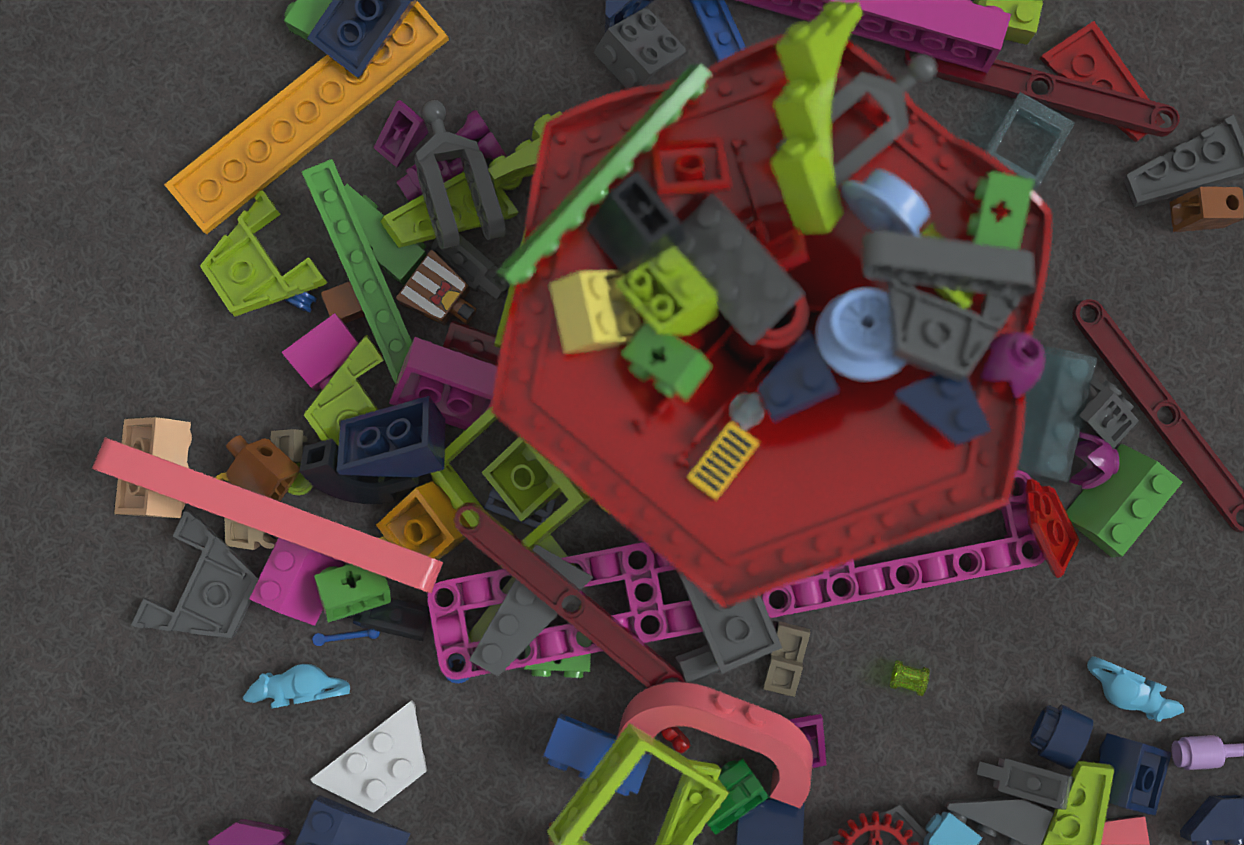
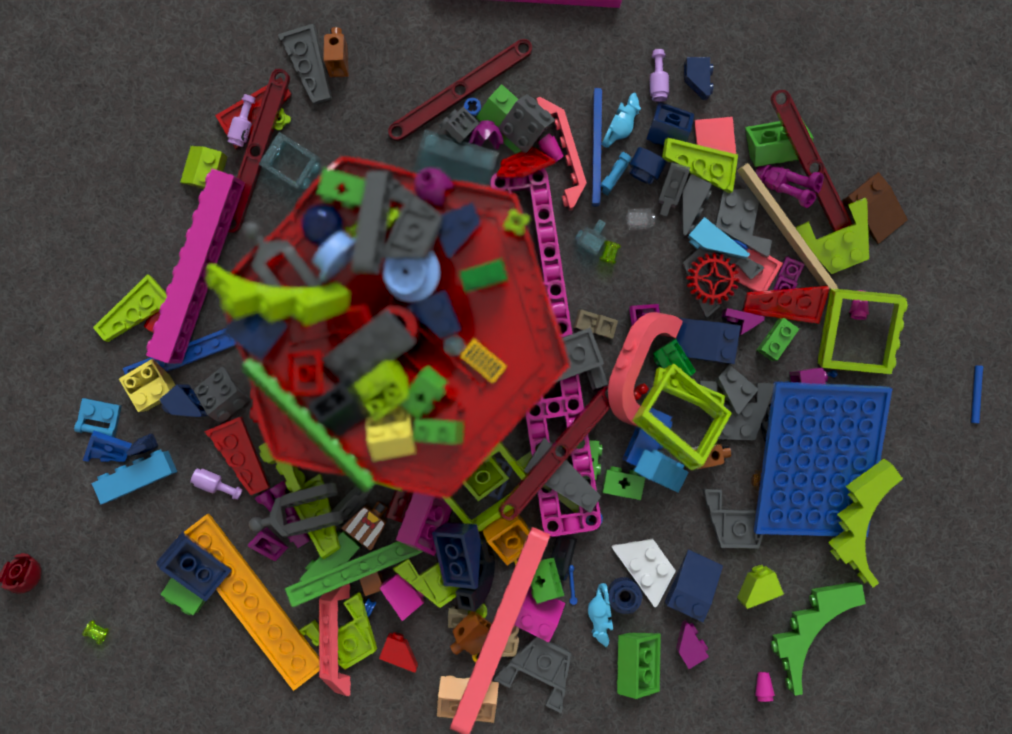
camera: 80 degrees left, 5 degrees up
(214, 755) = (638, 664): none -> bright green slope
(228, 352) = (398, 652): none -> red slope
(245, 236) = (328, 640): none -> coral slope
(312, 727) = (627, 605): none -> dark blue piece
(501, 33) = (209, 482): none -> lavender piece
(507, 732) = (612, 486): none -> bright green brick
(546, 780) = (662, 469): none -> dark azure brick
(553, 80) = (238, 450): none -> red wing
(603, 389) = (438, 431): none -> bright green brick
(753, 82) = (255, 333): none -> dark blue slope
(869, 454) = (484, 275): none -> green brick
(928, 645) = (591, 240): none -> clear light blue brick
(940, 181) = (321, 223): none -> clear blue cylinder
(968, 727) = (639, 219): none -> clear brick
(971, 499) = (518, 228): none -> lime plate
(1044, 682) = (617, 170): none -> dark azure plate
(1080, 570) = (550, 147): none -> dark pink cone
(1081, 60) = (240, 125): none -> lavender piece
(1086, 648) = (596, 149): none -> blue tile
(1094, 132) = (284, 120): none -> lime plate
(1120, 525) = (525, 123): none -> dark grey bracket
(1141, 562) = (571, 194): none -> coral slope
(1149, 434) = (478, 106): none -> blue bush

